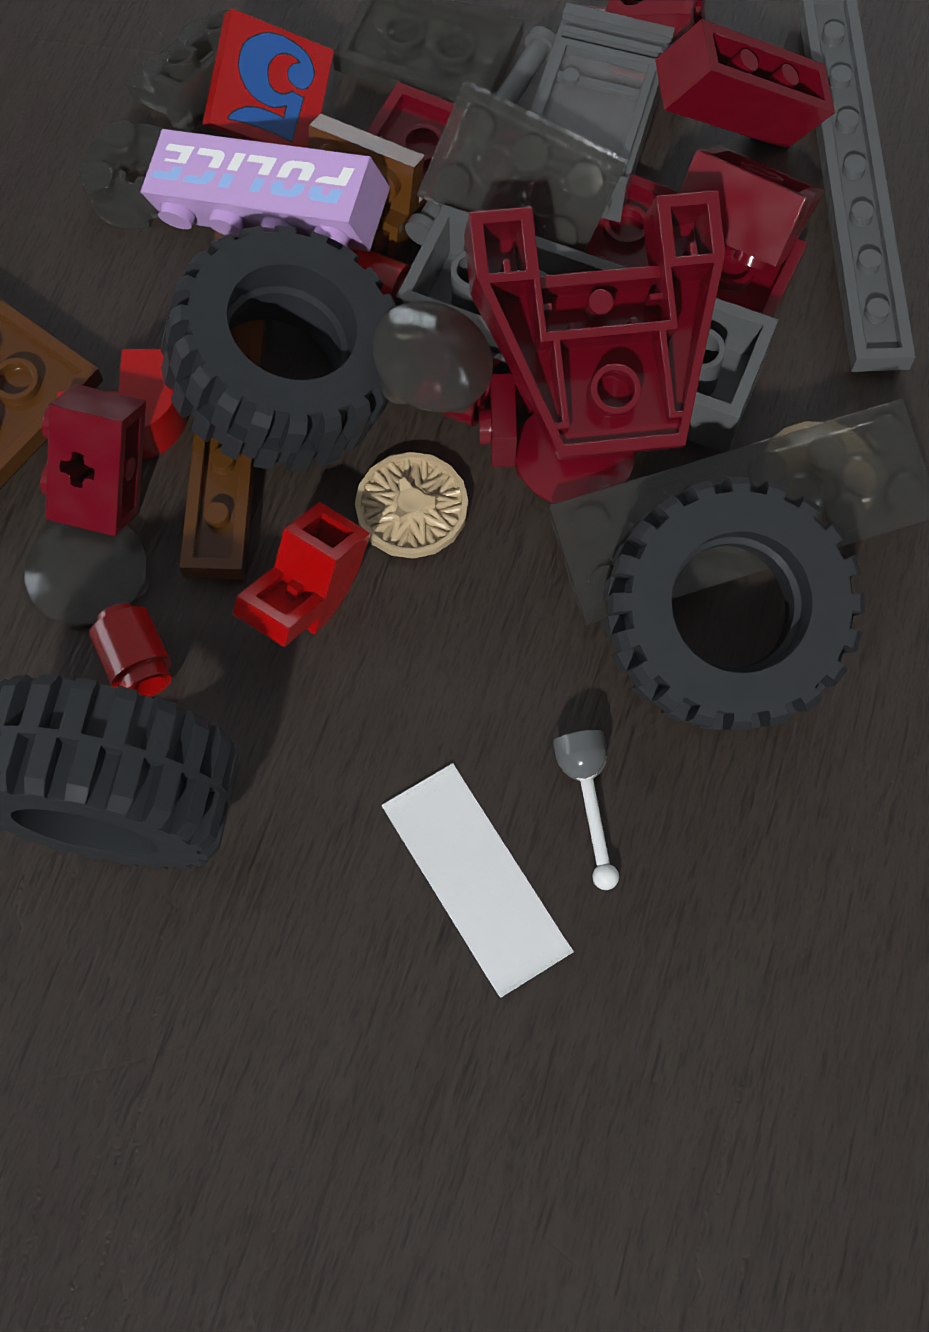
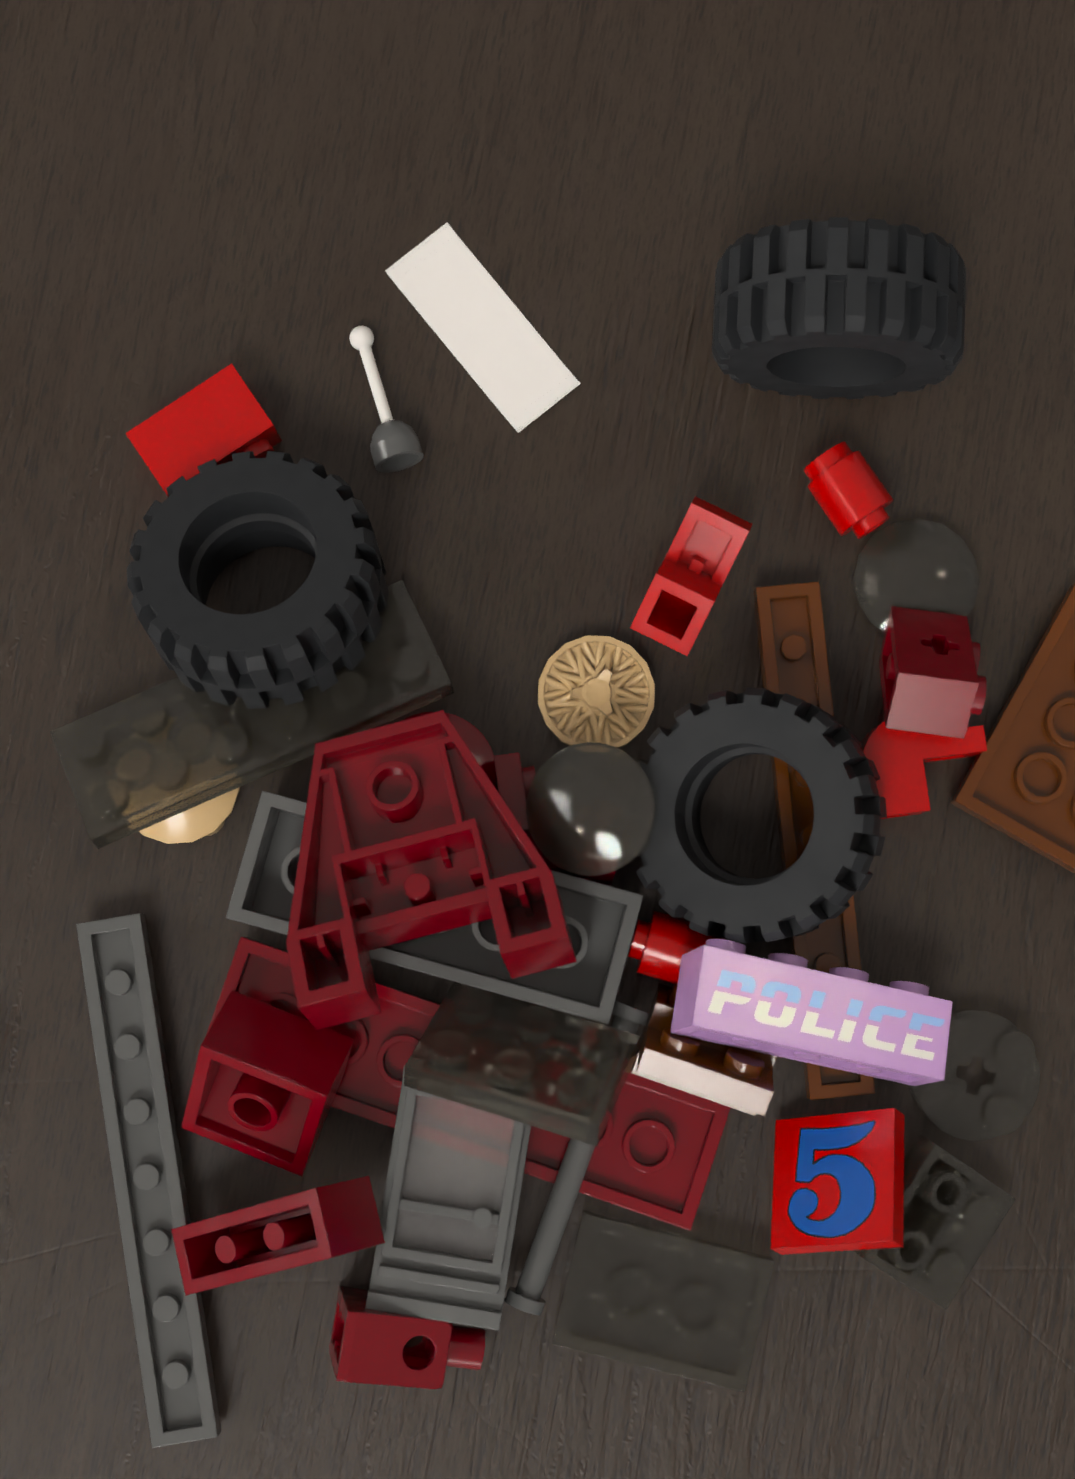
camera: 175 degrees right, 15 degrees up
(777, 780) = (202, 426): none -> red brick

